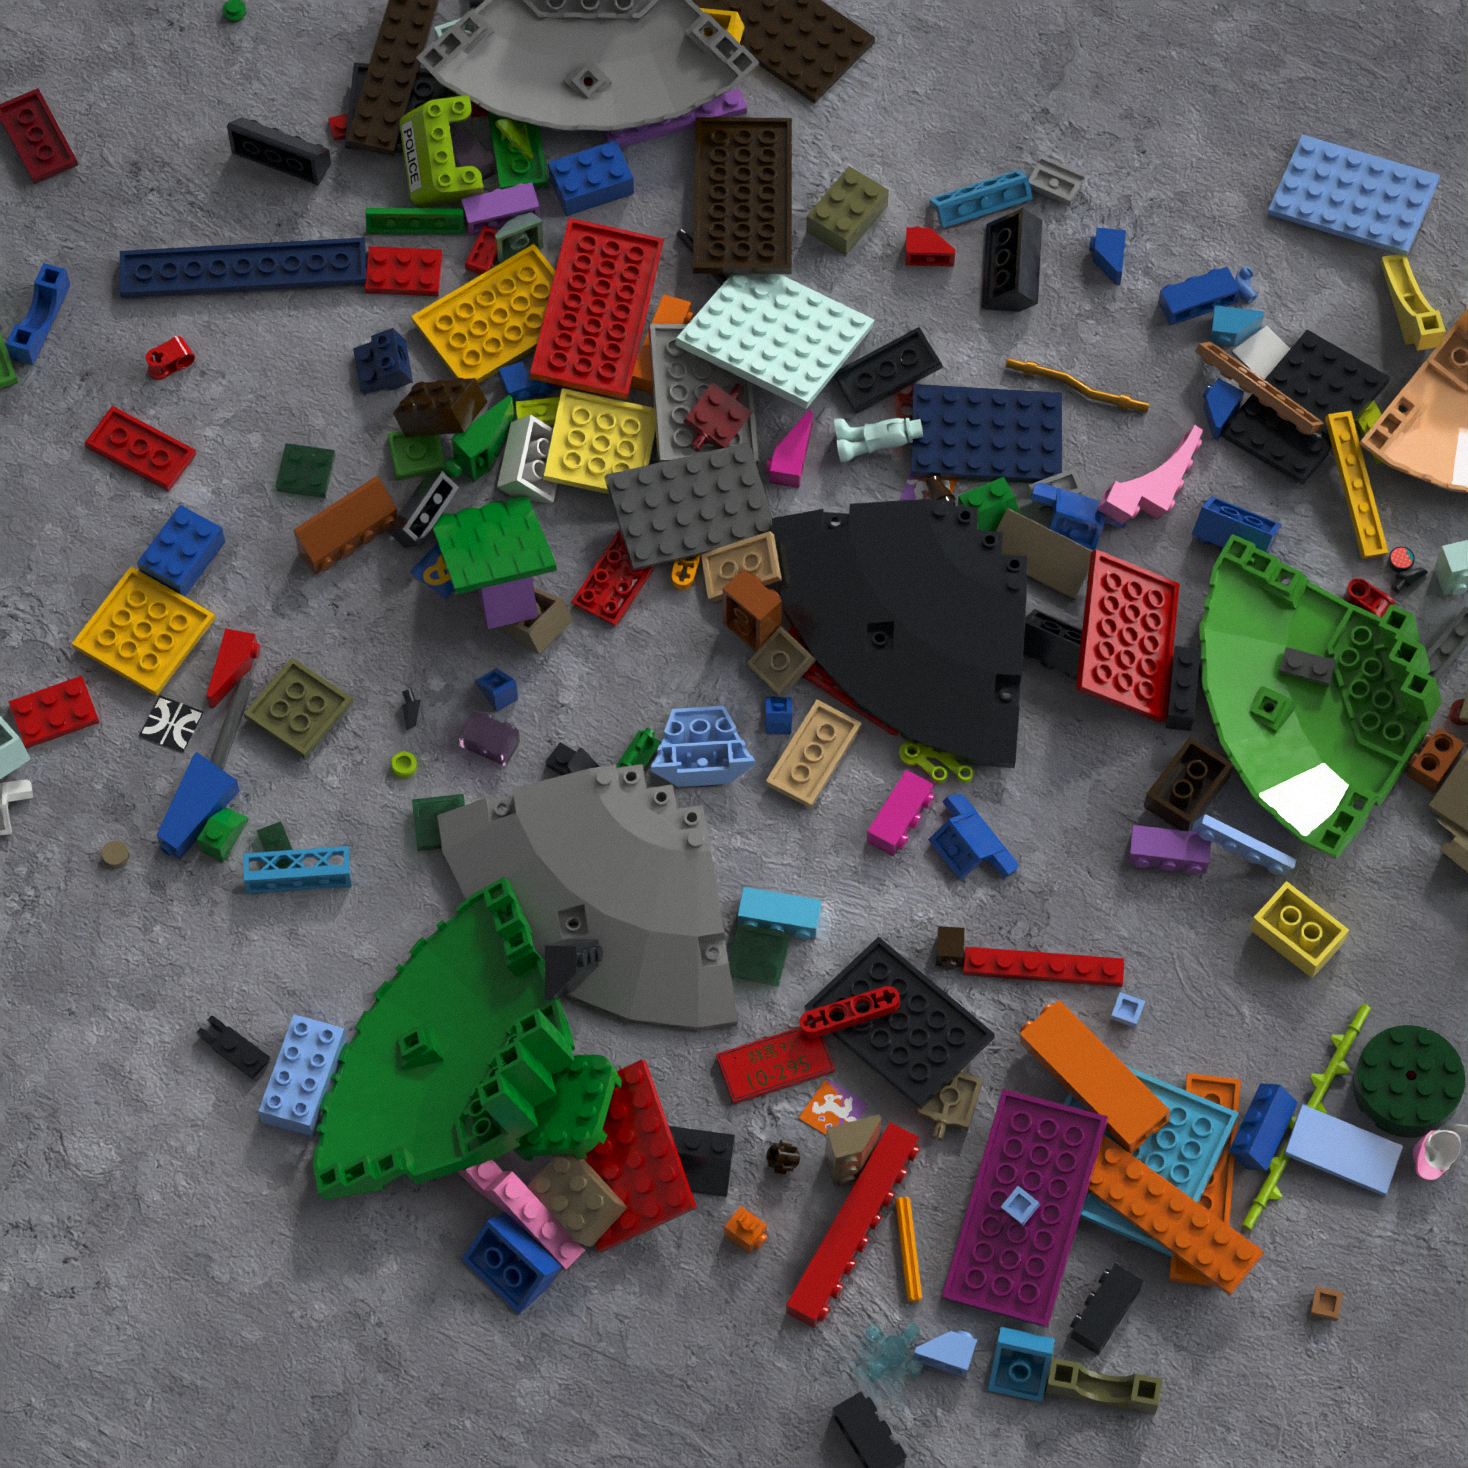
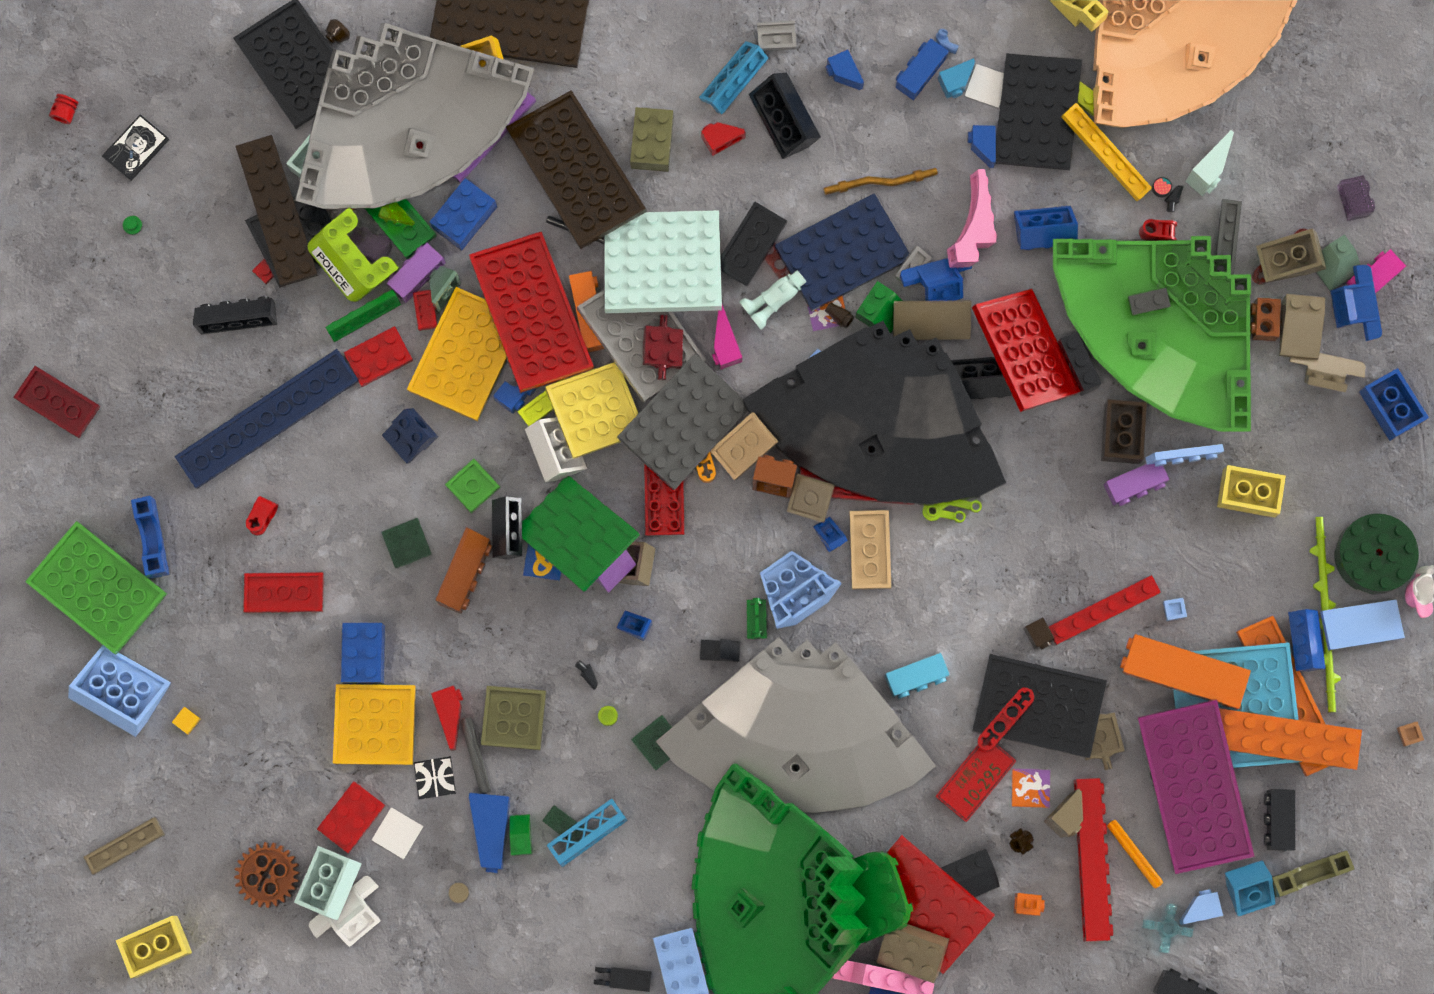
camera: 30 degrees left, 15 degrees up
(92, 757) = (397, 833): none -> white sticker
(440, 407) = (474, 450): dark brown brick -> none
(481, 443) = (515, 462): green slope -> none
(489, 737) = (653, 664): clear purple brick -> none
(569, 964) = (816, 801): black slope -> none
(759, 954) = (922, 712): clear green plate -> none
(900, 813) = (952, 559): dark pink brick -> none
(969, 840) = (1007, 551): blue plate -> none
(1020, 1205) = (1195, 790): light blue plate -> none
(1254, 384) = (1004, 117): medium nougat plate -> none

